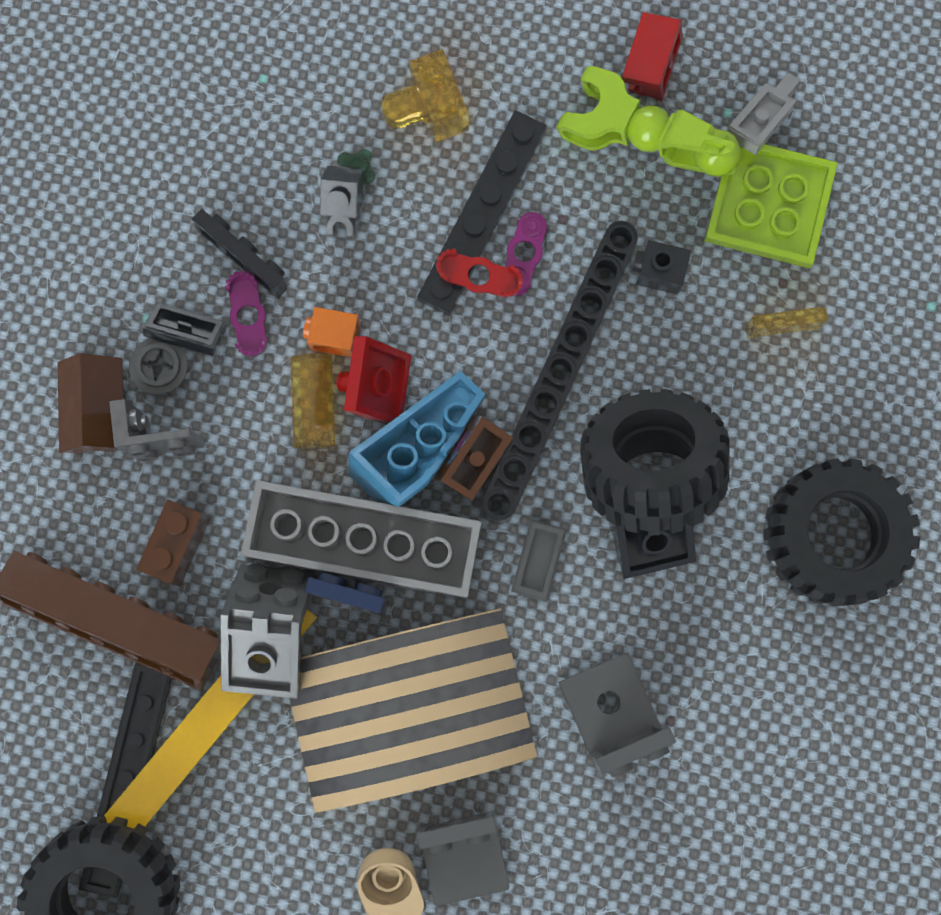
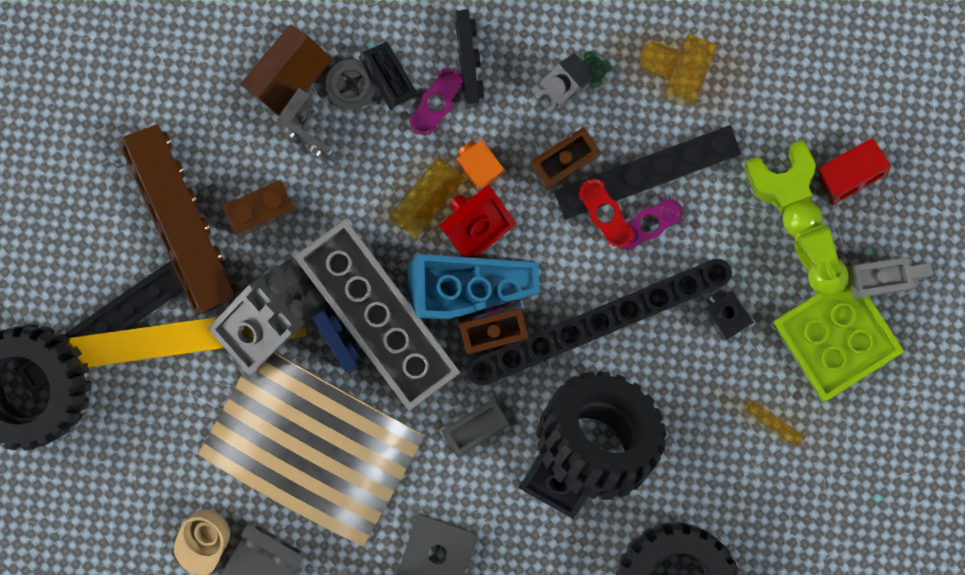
camera: 35 degrees right, 5 degrees up
(401, 260) = (565, 159): none -> reddish brown brick

